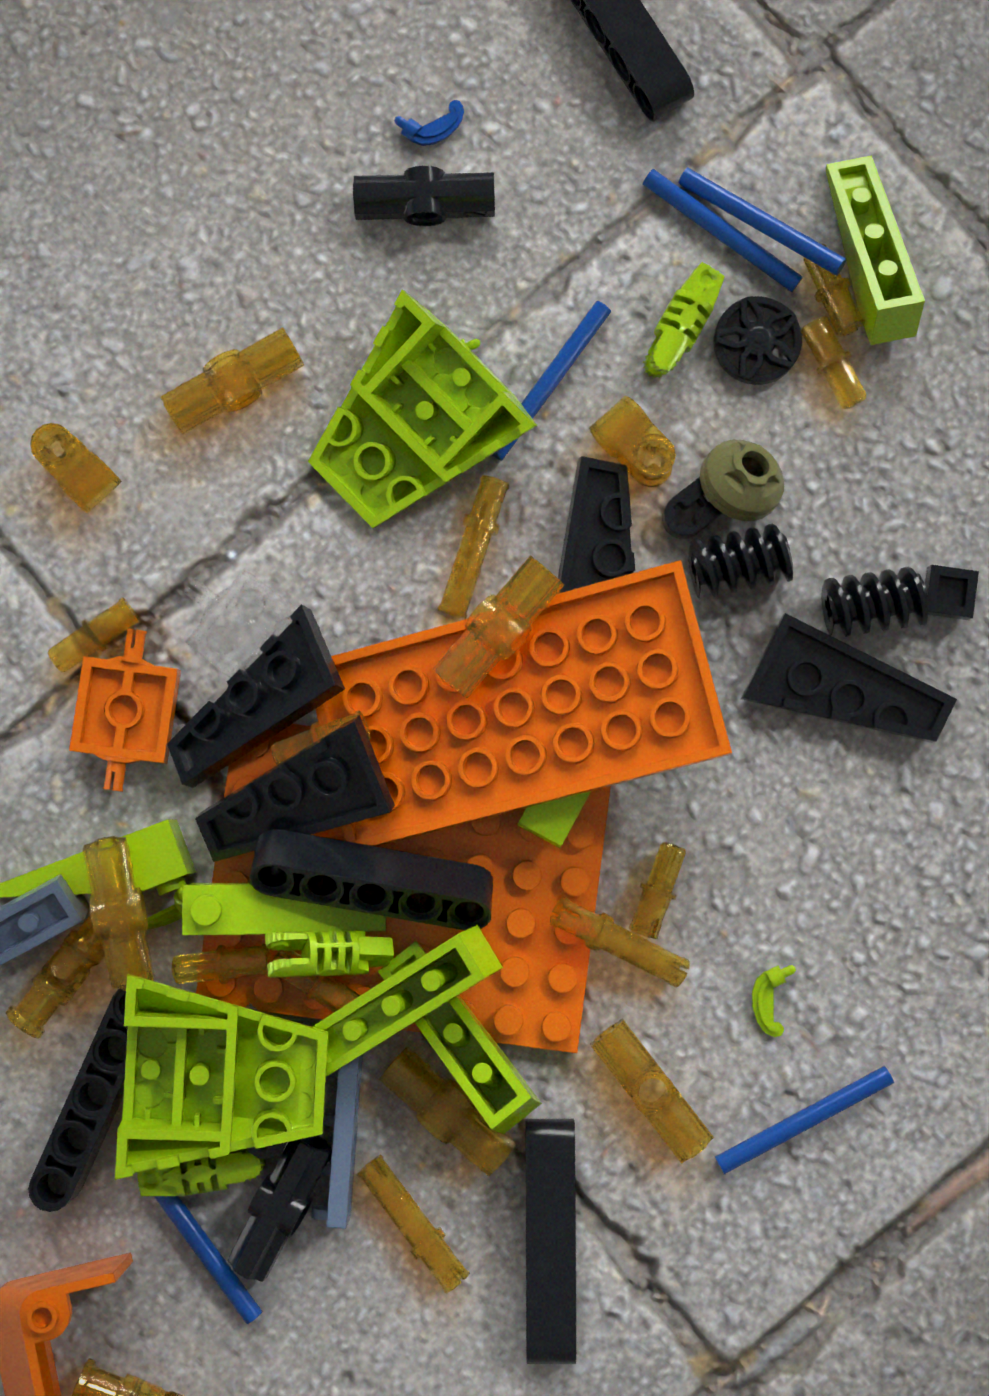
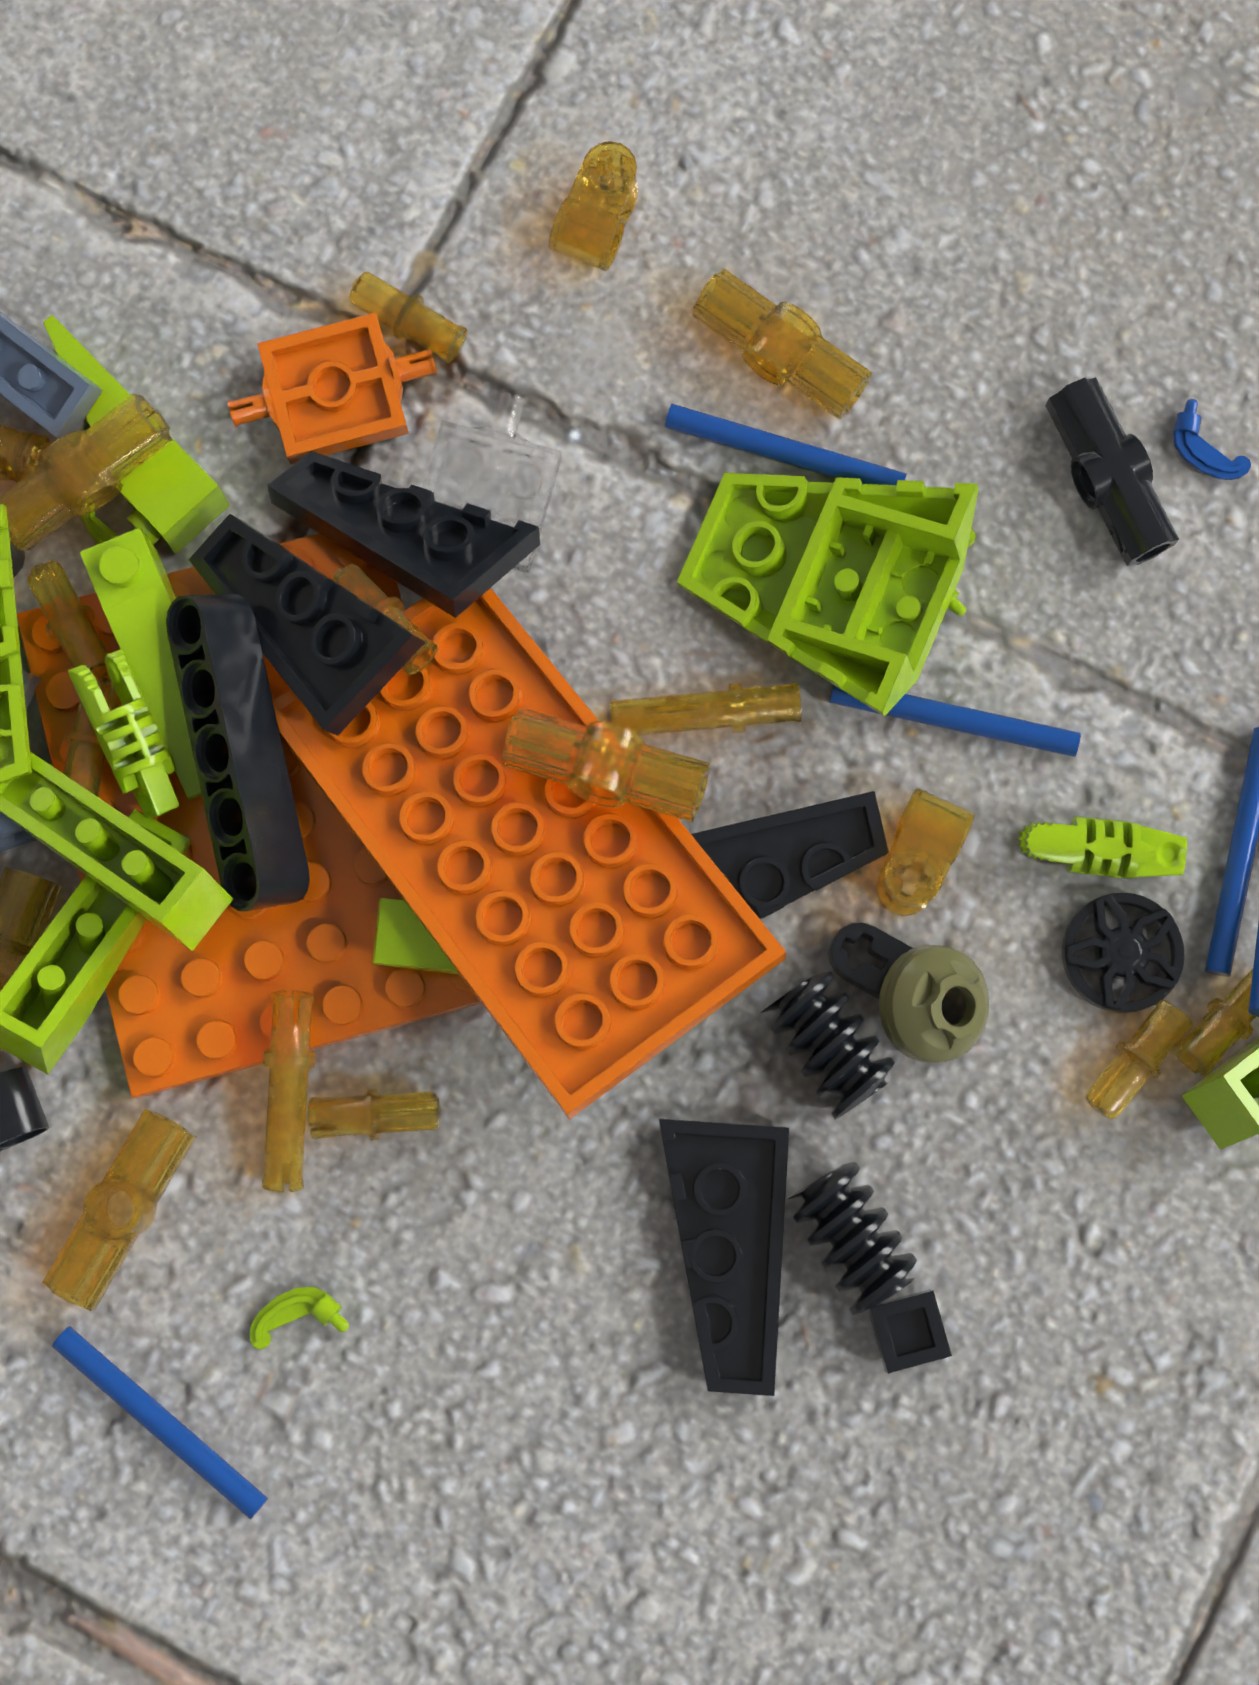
camera: 65 degrees right, 5 degrees down
(308, 413) = (778, 447): none -> blue bar

